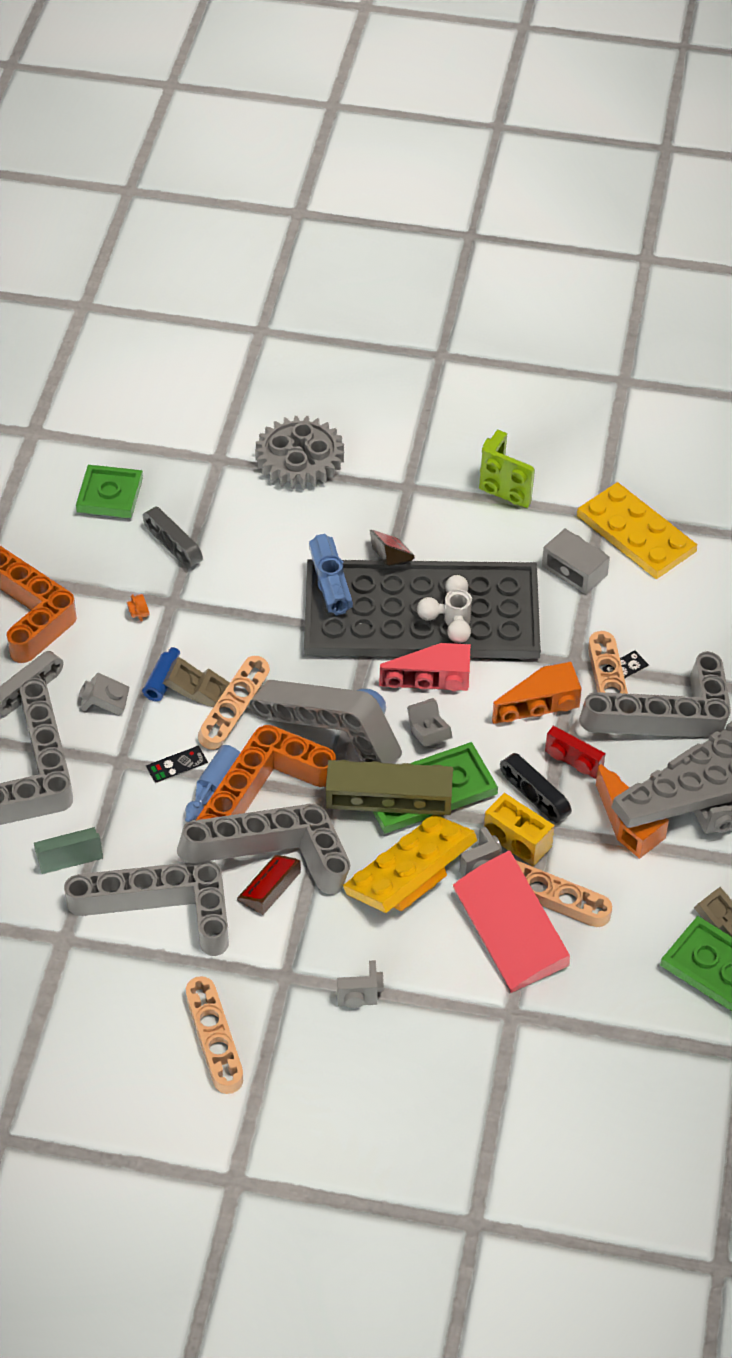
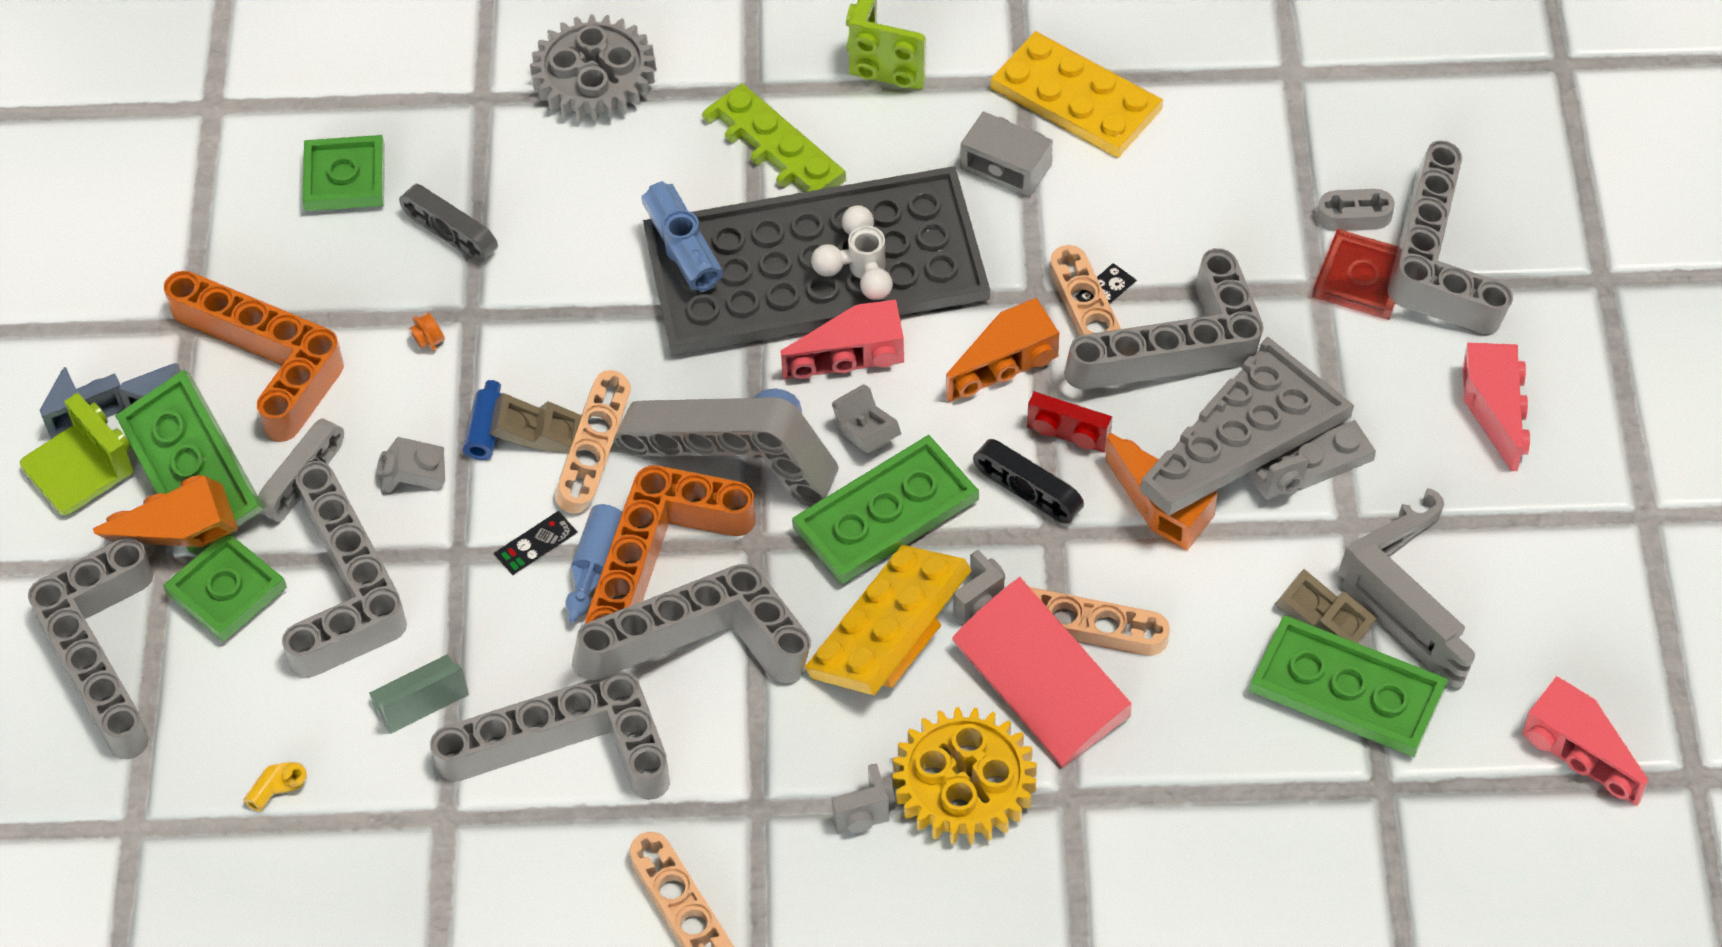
camera: 10 degrees left, 5 degrees up
(270, 883) = (705, 684): slope -> none
(389, 787) = (836, 521): olive brick -> none
(390, 548) = (752, 183): dark brown slope -> none
(410, 991) = (996, 755): none -> yellow gear
(414, 523) = (774, 140): none -> lime hinge
(519, 829) = (1023, 543): yellow brick -> none

